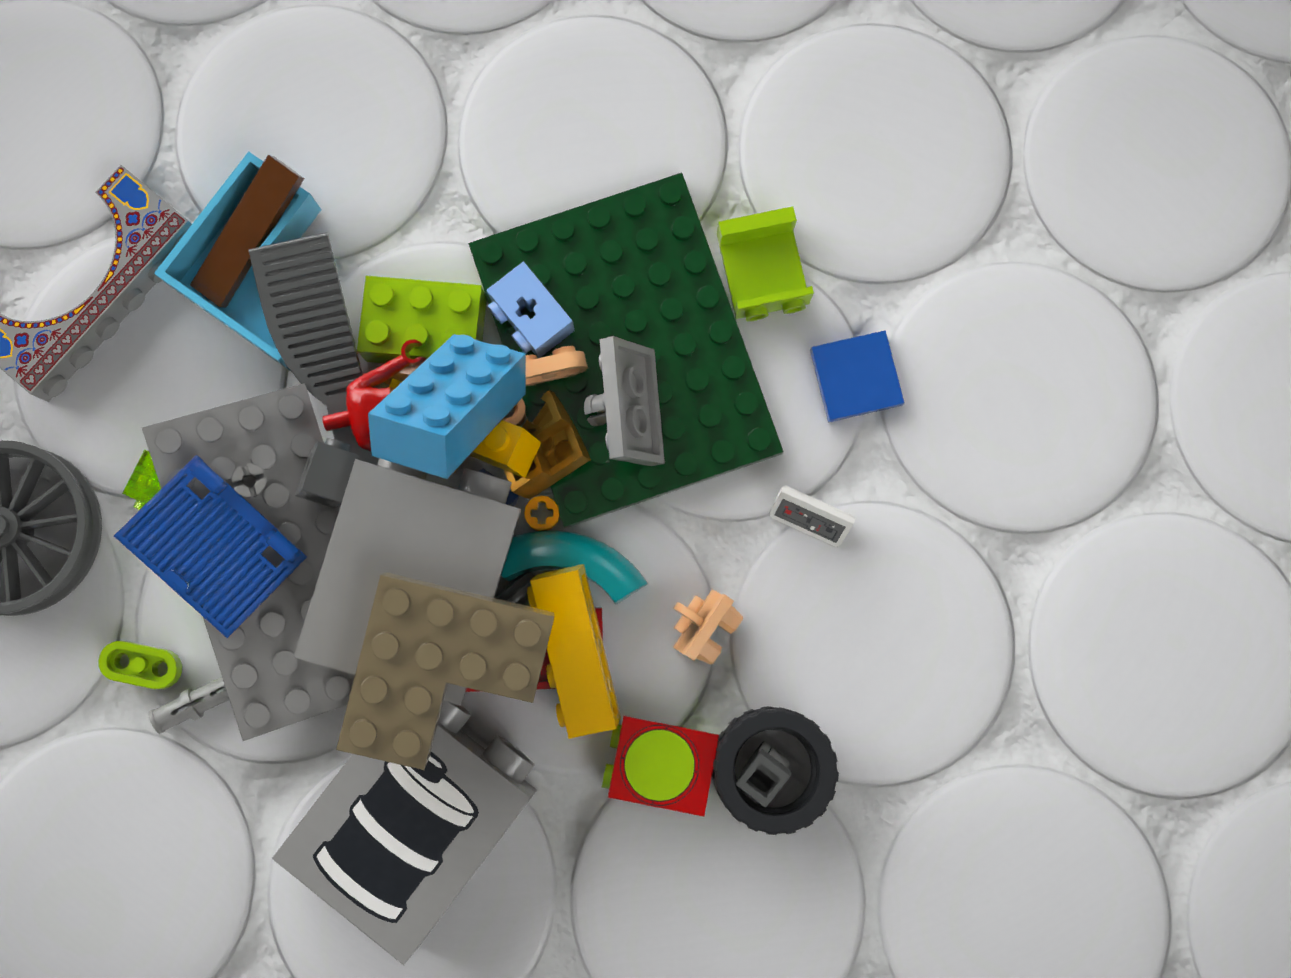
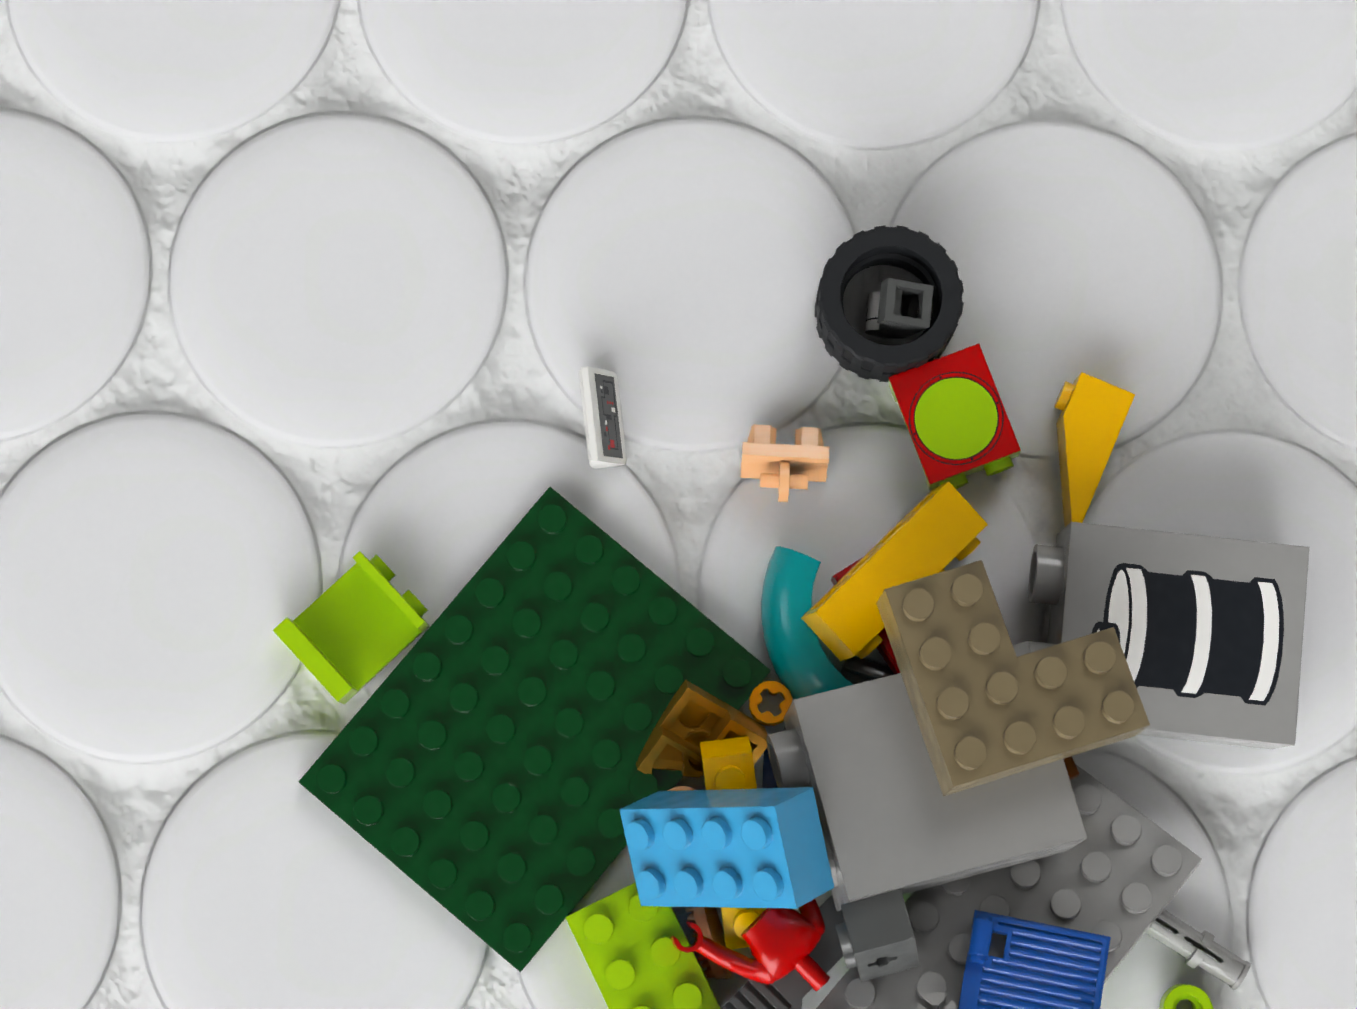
camera: 120 degrees left, 0 degrees up
(521, 290) = (540, 866): light blue brick -> none
(561, 364) = (598, 774): light nougat plate -> none
(592, 857) = (1086, 436): none -> yellow slope
(628, 402) = (603, 673): light grey plate -> none
(856, 376) = (419, 457): blue tile -> none

